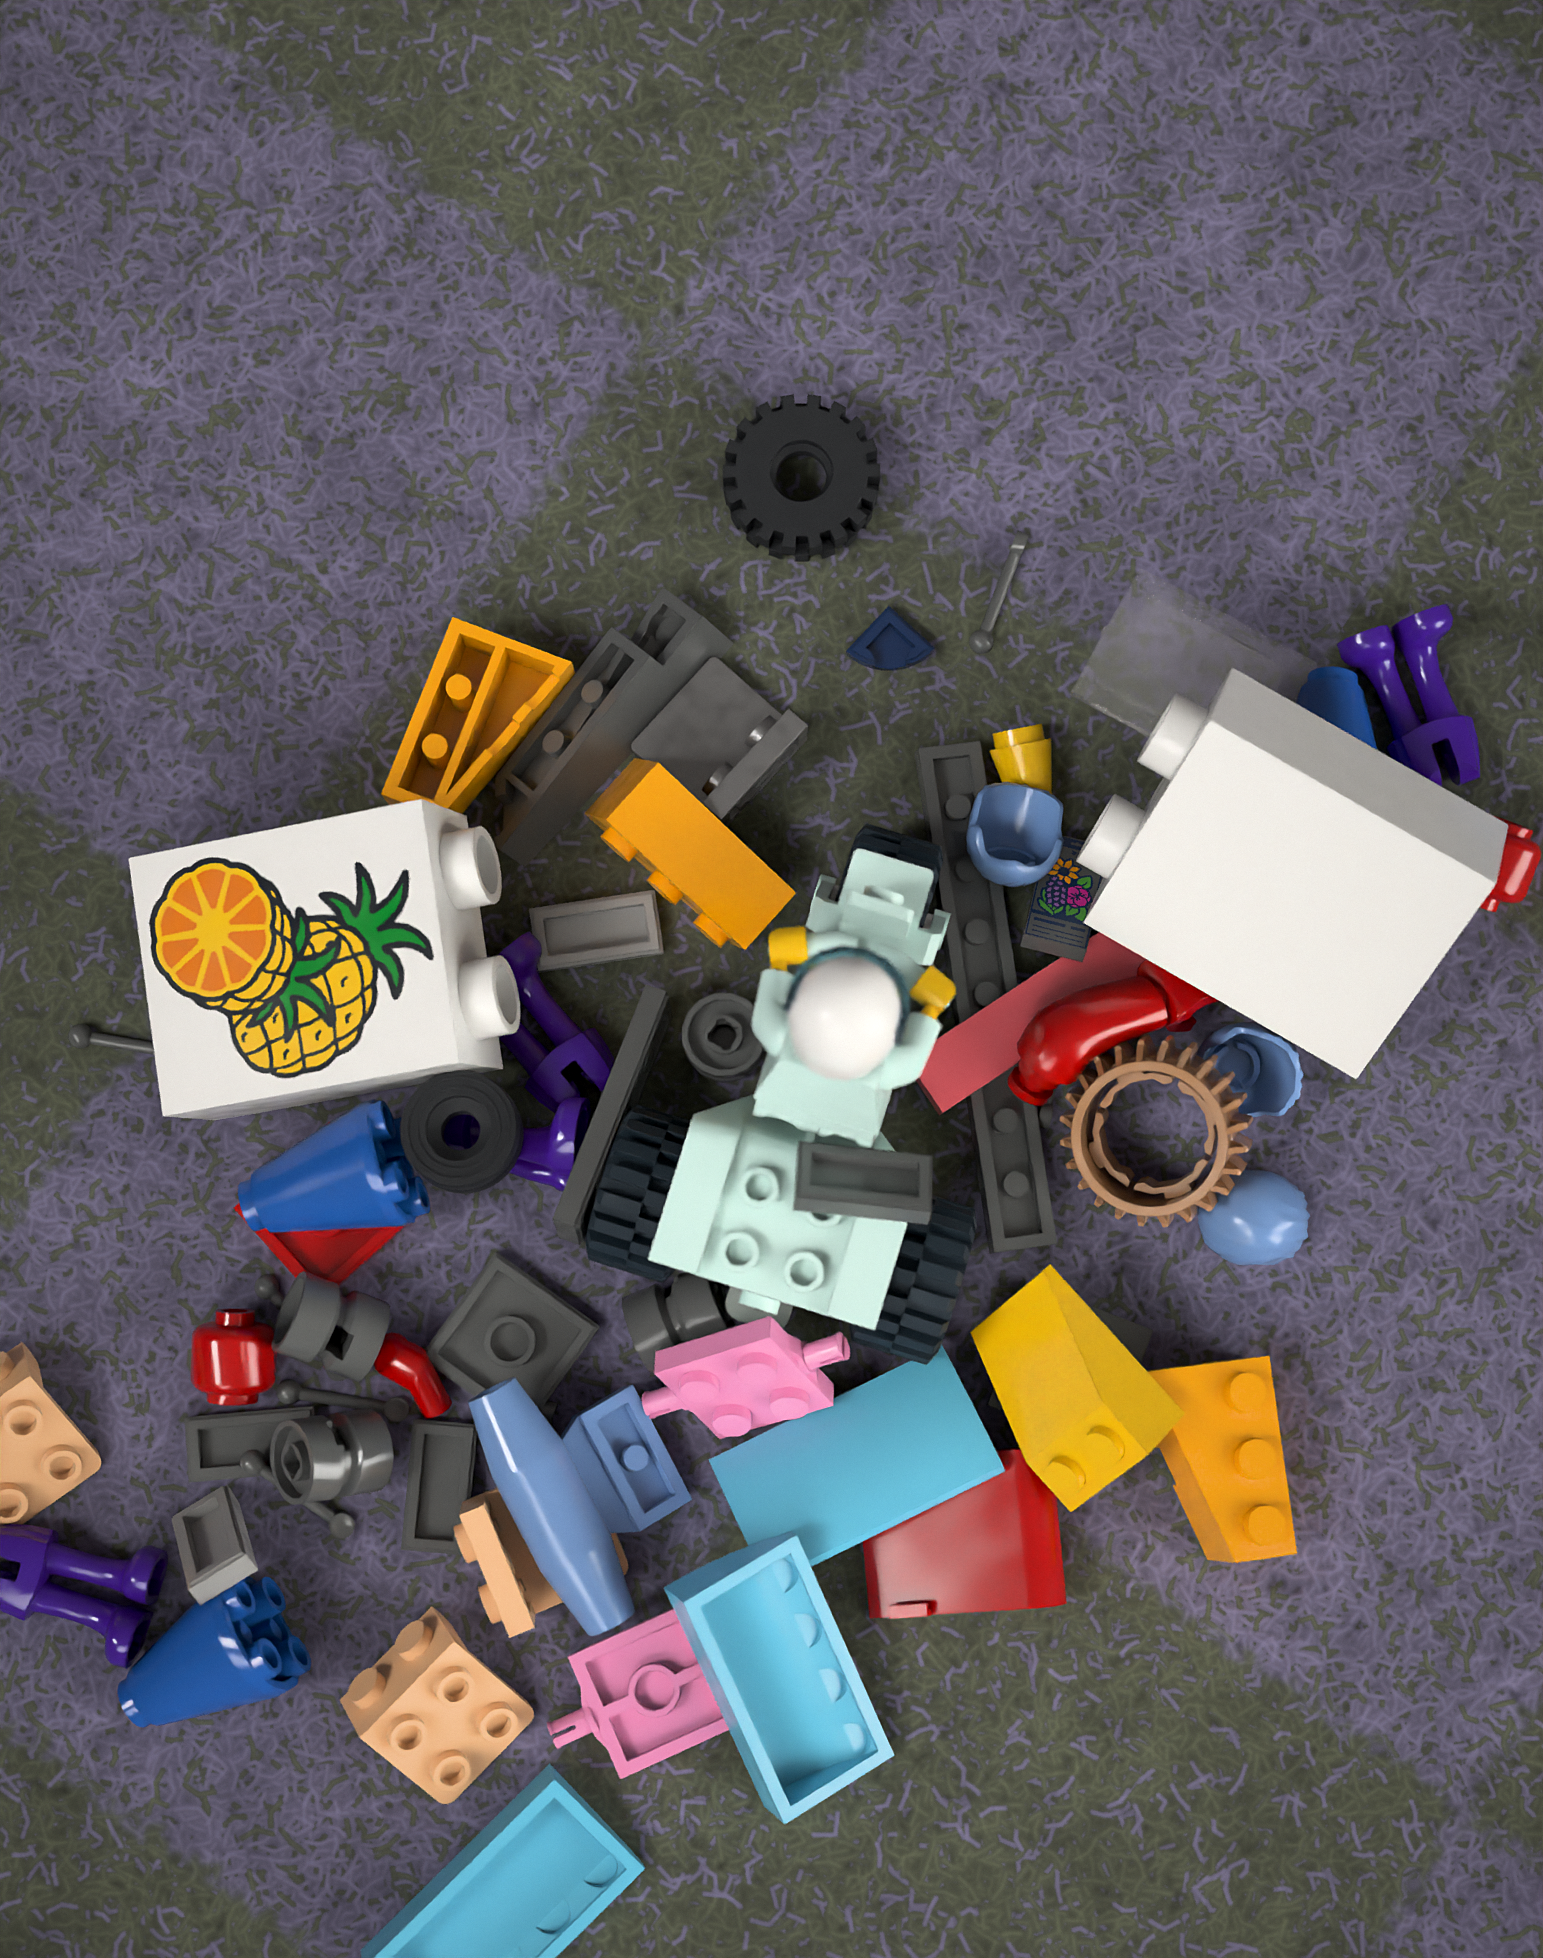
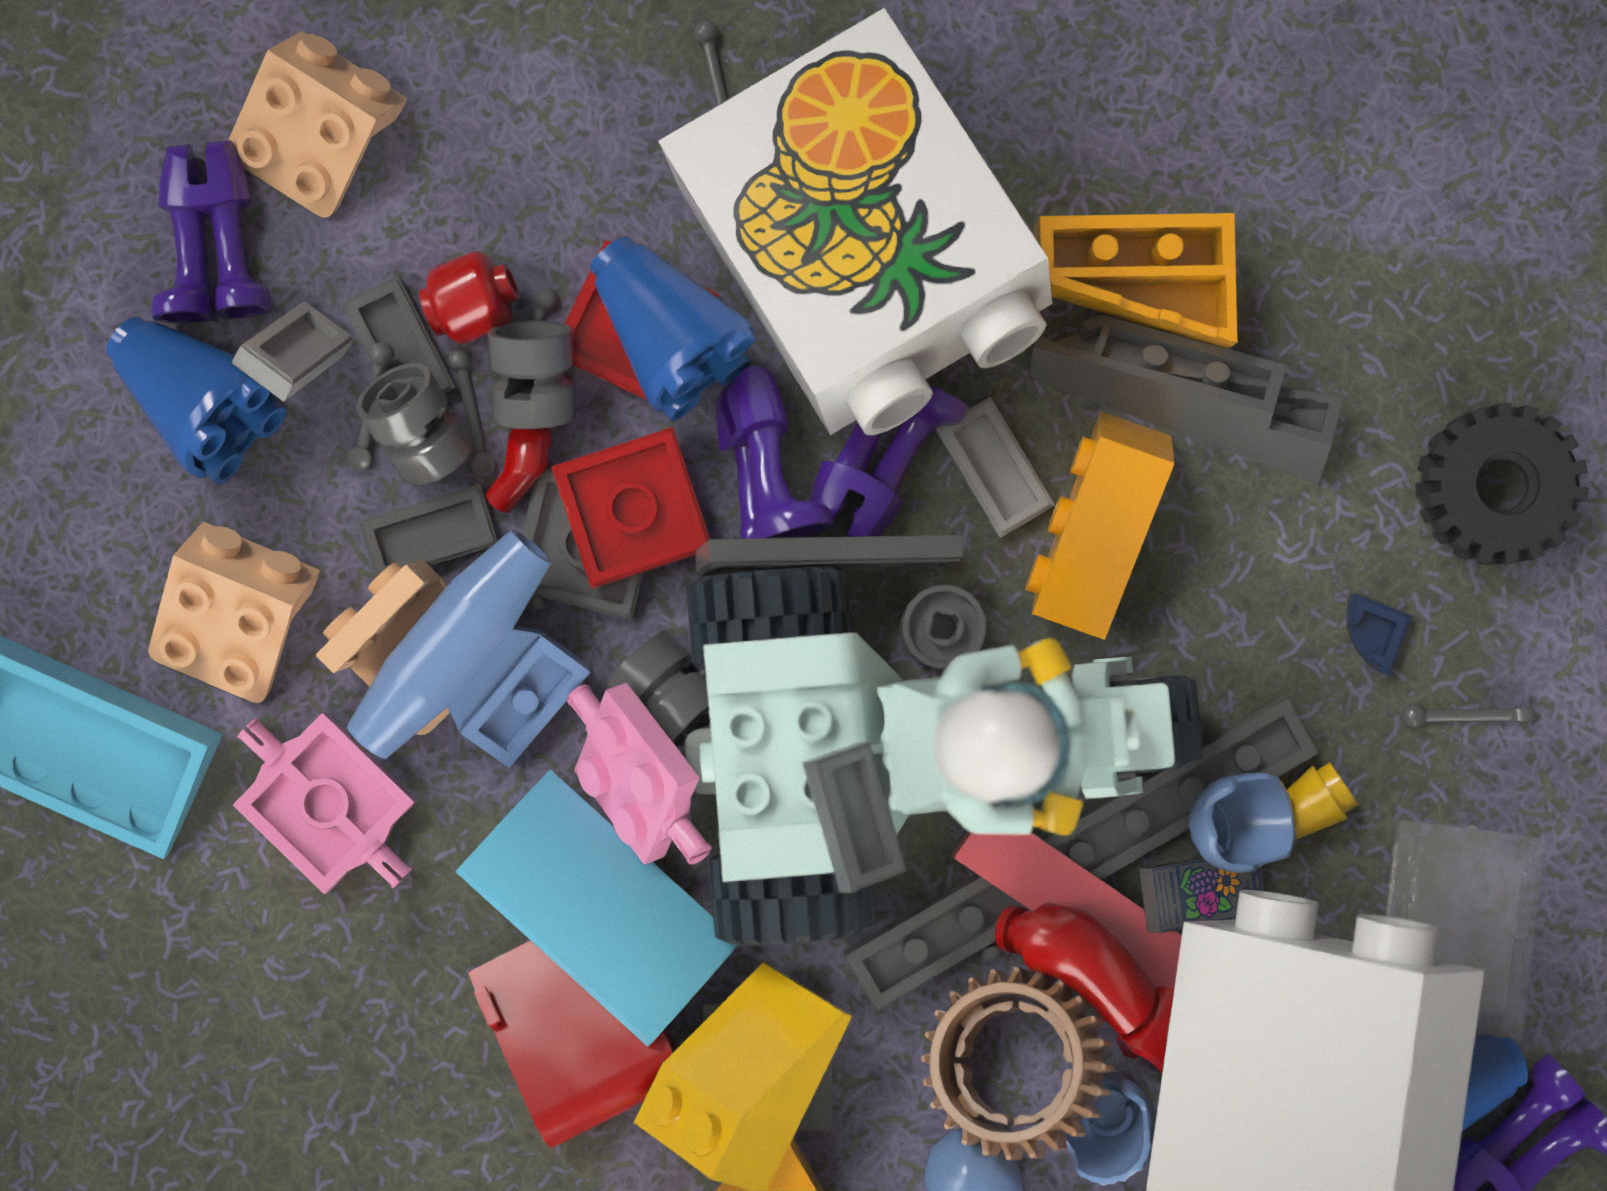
camera: 60 degrees right, 5 degrees up
(439, 1102) = (760, 385): black tyre -> none
(494, 1283) = (631, 507): none -> red tile
(721, 740) = (1221, 510): flat silver bracket -> none
(780, 1673) = (383, 913): medium azure slope -> none

